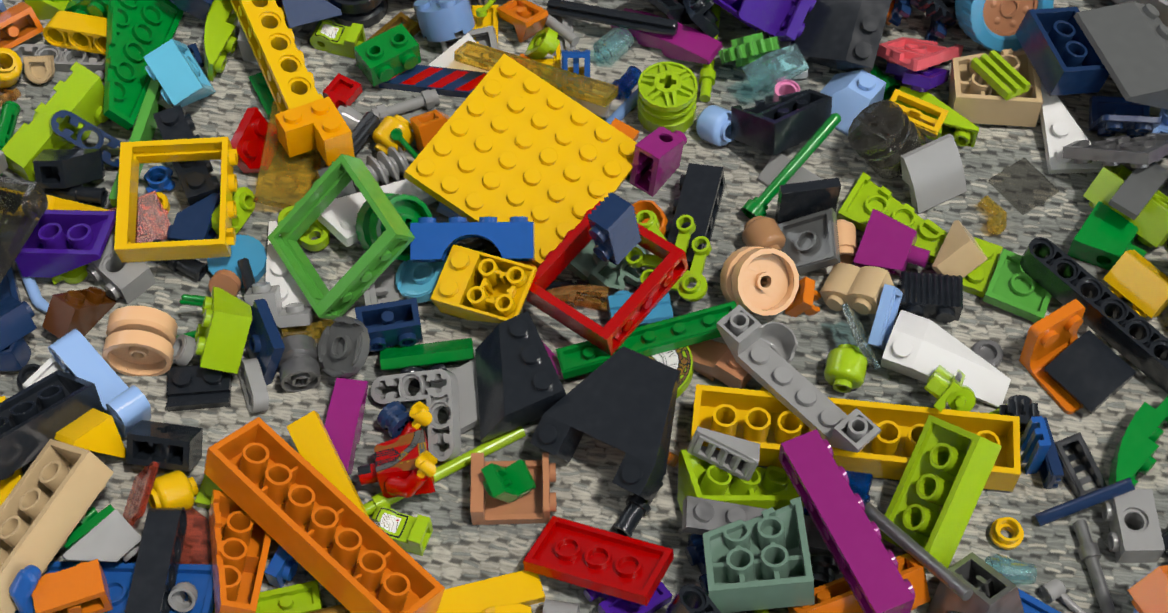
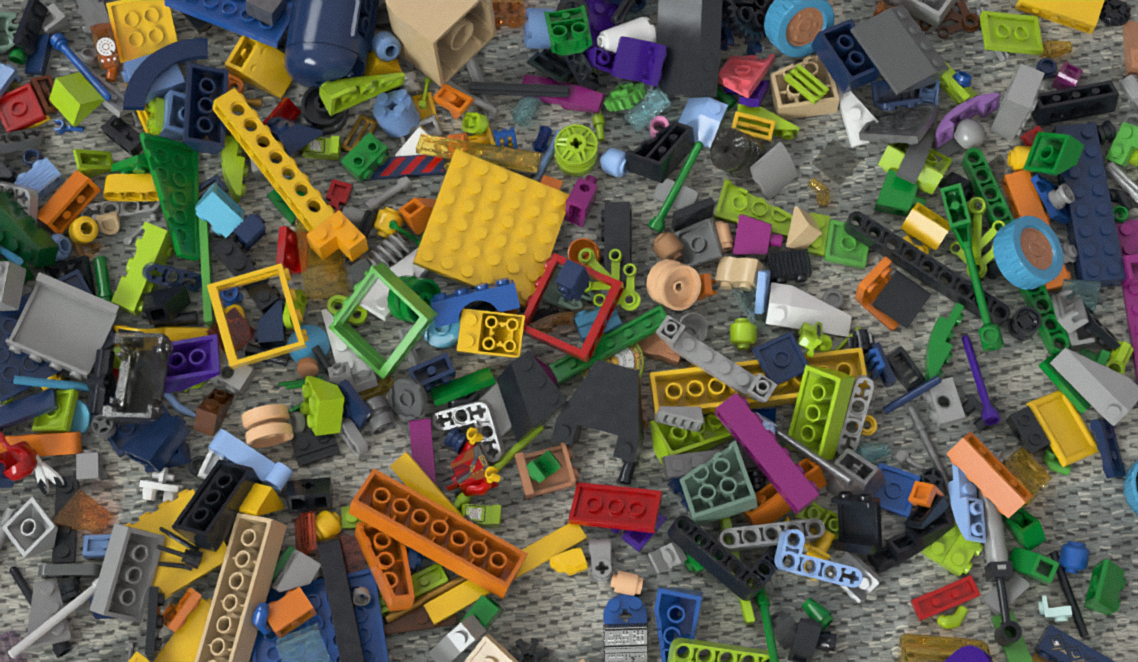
camera: 15 degrees left, 15 degrees up
(209, 106) = (250, 231): none -> dark blue brick
(894, 402) = (781, 358): none -> dark blue plate
(996, 512) = (857, 416): none -> light grey beam

